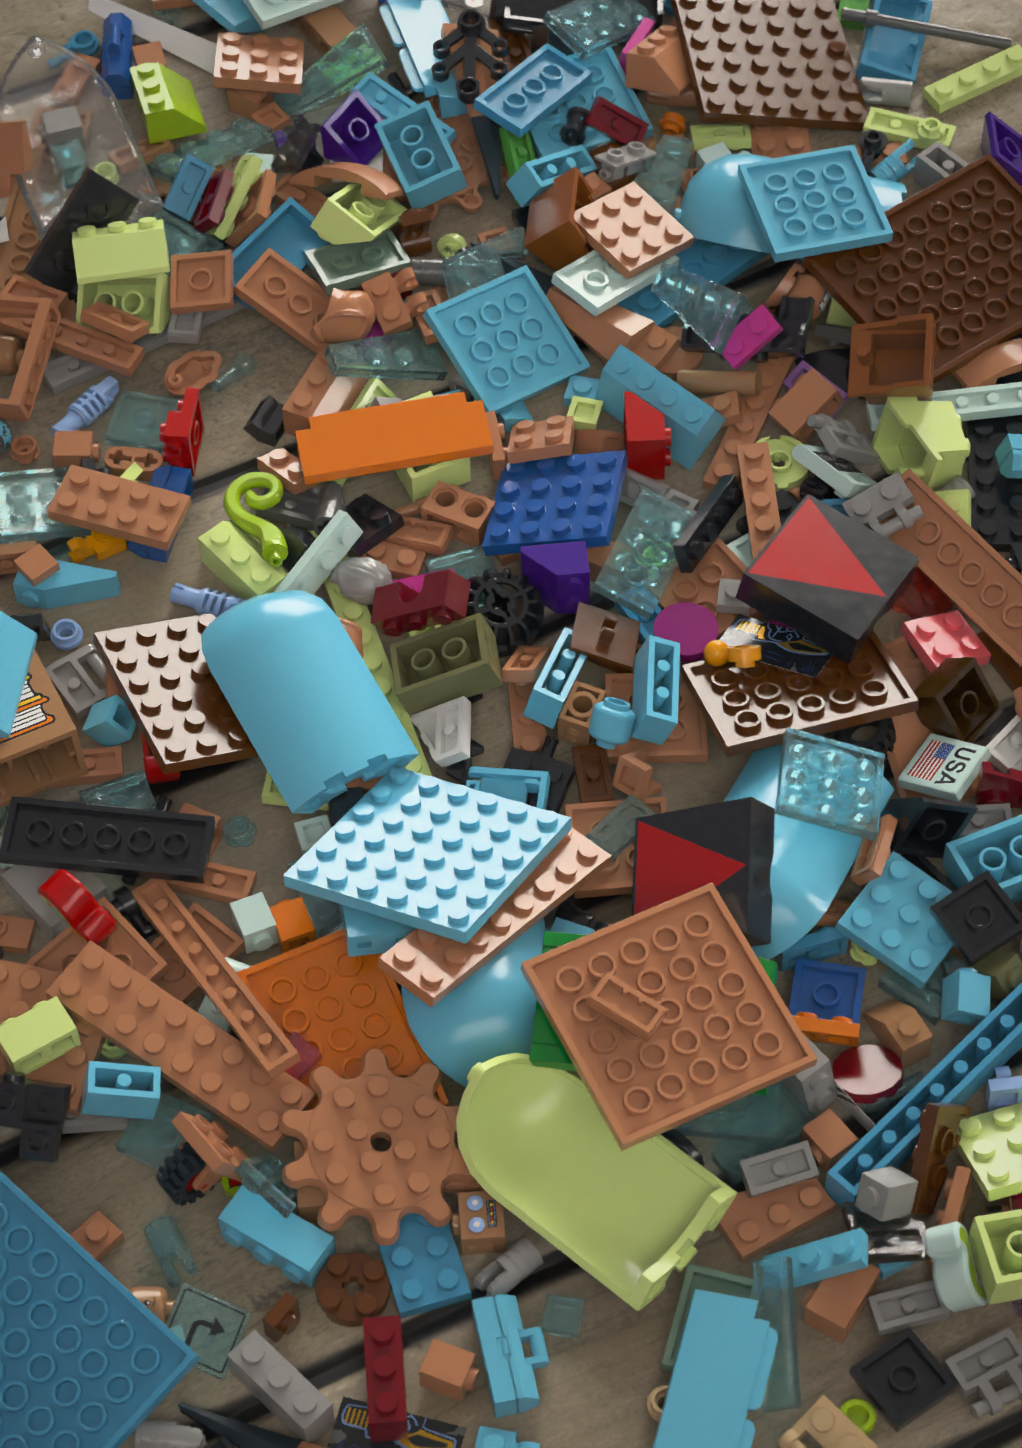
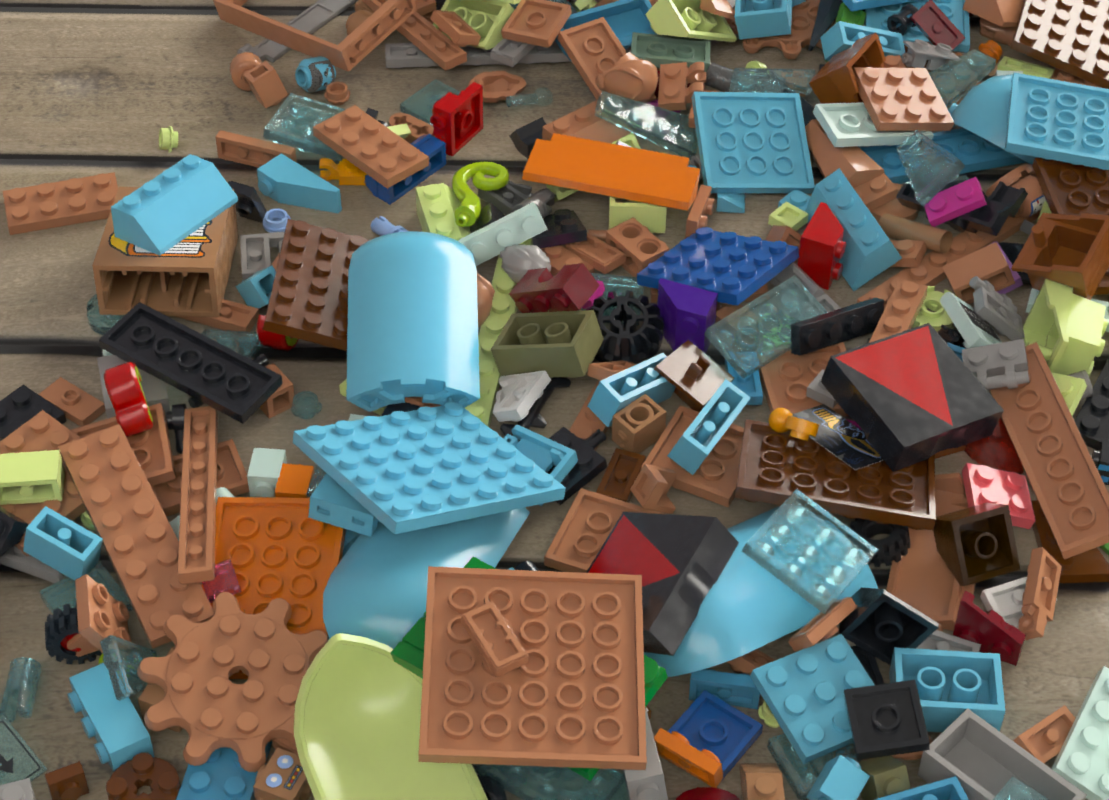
camera: 25 degrees right, 10 degrees down
(36, 565) = (281, 161): nougat tile -> none
(73, 446) = (373, 98): nougat brick -> none
(88, 406) = (401, 83): light blue hinge -> none
(221, 884) = (259, 431): nougat plate -> none
(286, 468) = (515, 167): nougat plate -> none
(413, 232) = (729, 47): reddish brown plate -> none
(436, 965) = (363, 544): nougat plate -> none
(541, 439) = (736, 220): nougat plate -> none
(611, 722) = (655, 437): medium azure head -> none
(618, 828) = (599, 524): clear light blue tile -> none
(688, 625) = (768, 393): magenta tile -> none
(944, 767) = (934, 589): light aqua tile -> none

